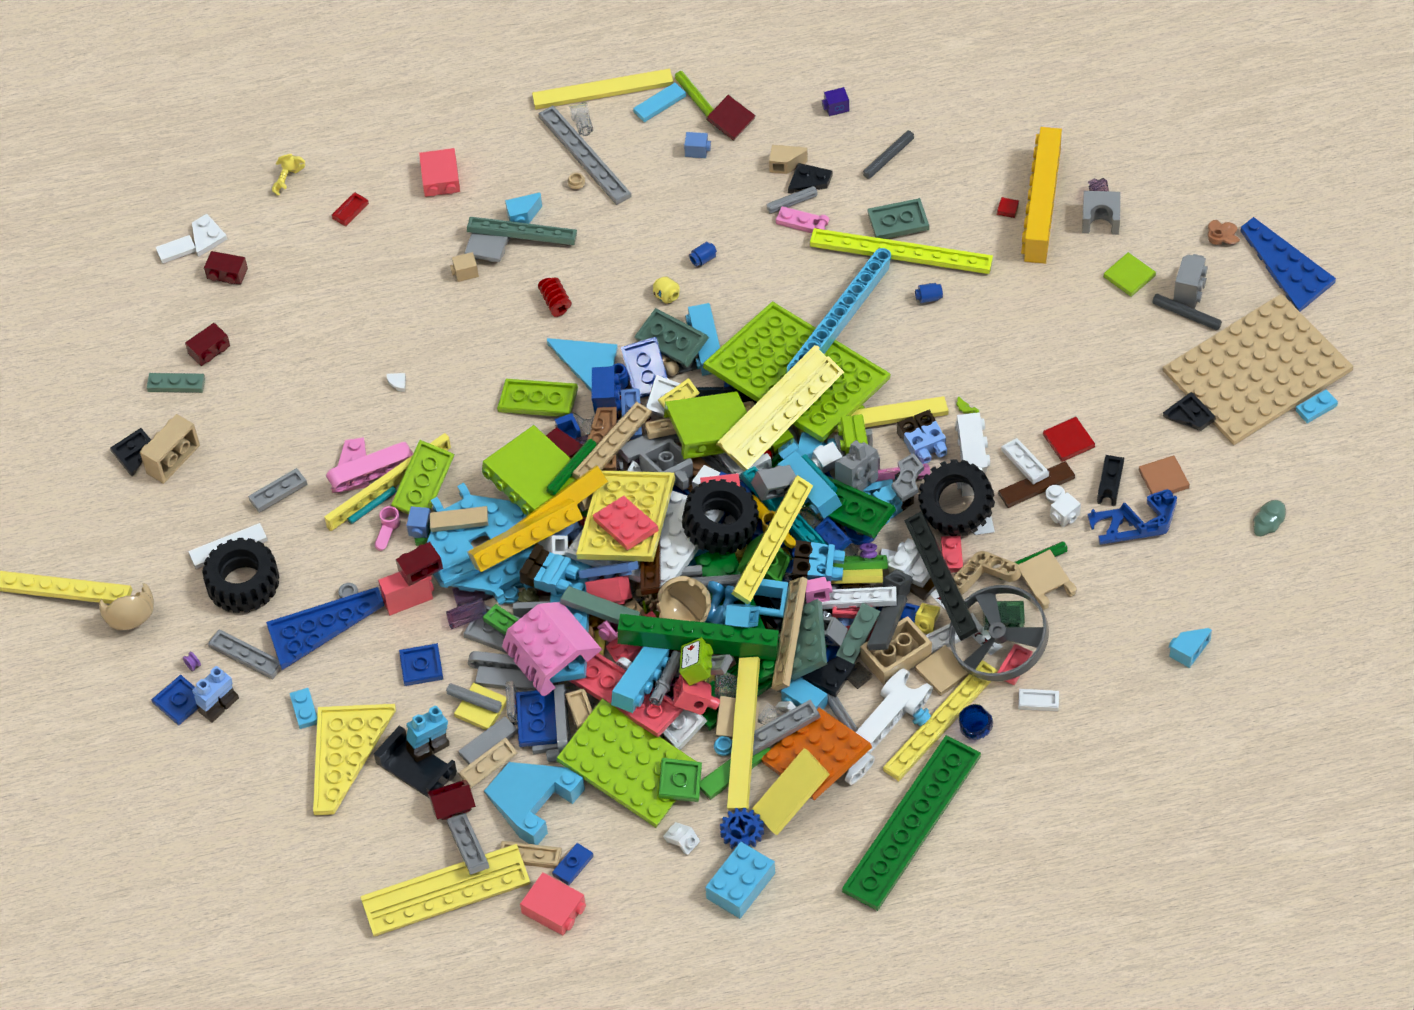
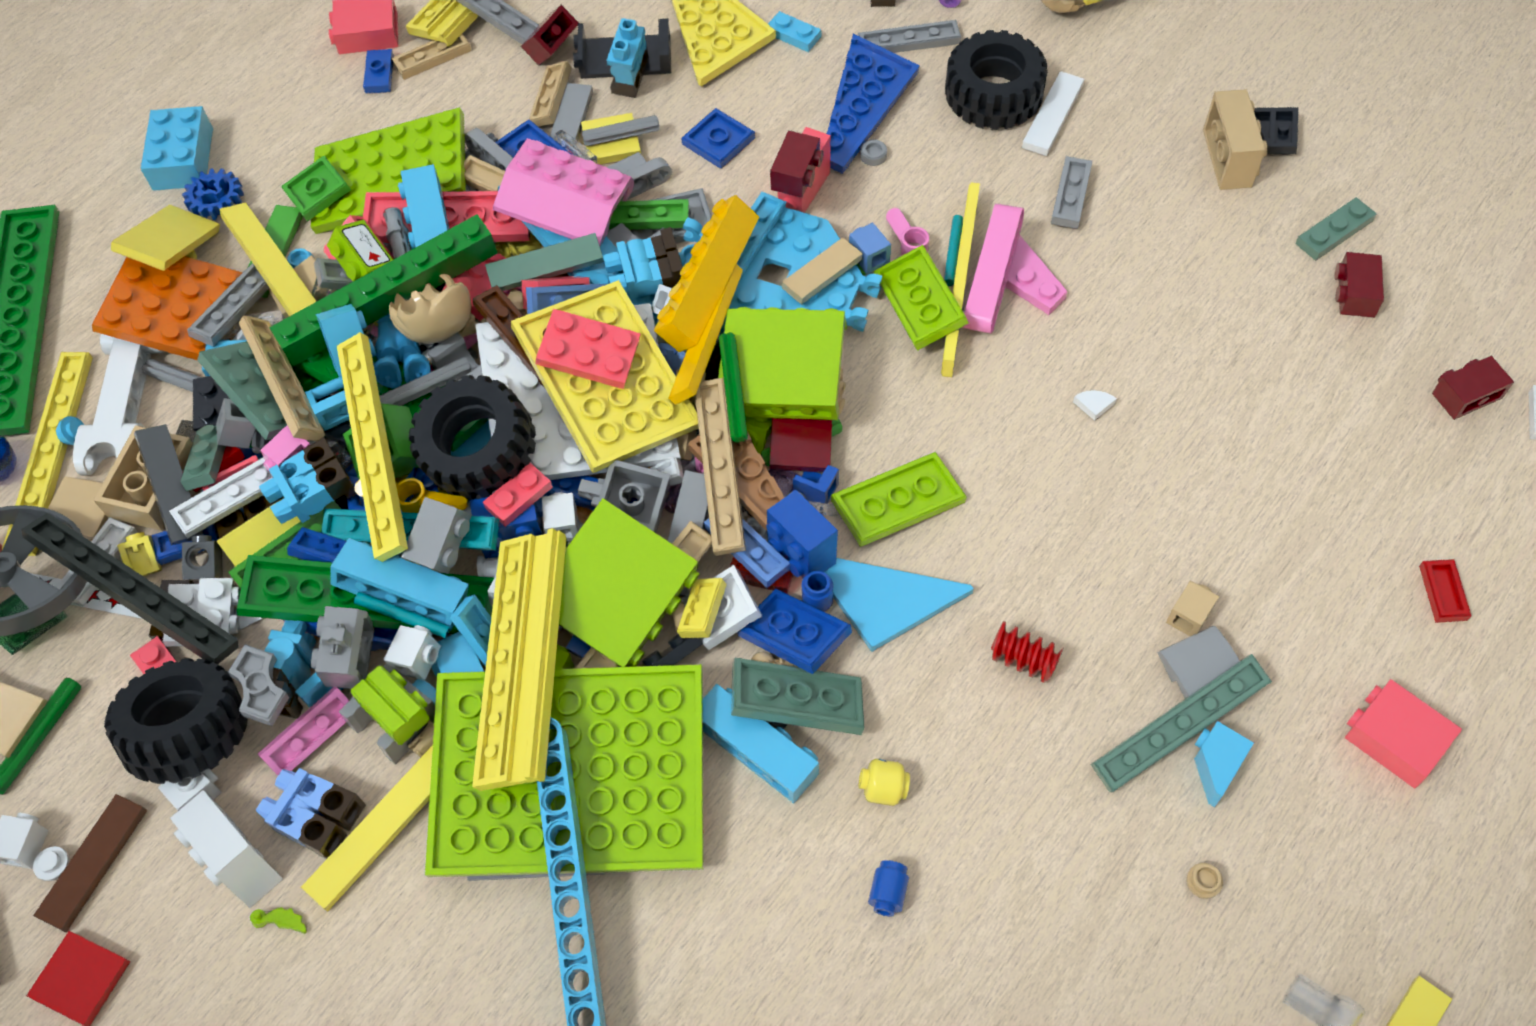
camera: 140 degrees right, 5 degrees up
(466, 613) = (703, 208): clear purple tile -> none
(524, 789) = (479, 85): medium azure wedge -> none
(585, 155) = (1250, 946): light grey tile -> none
(682, 836) = (278, 150): white bracket -> none
(983, 562) = (92, 674): tan beam -> none
(1025, 461) = (126, 883): white tile -> none

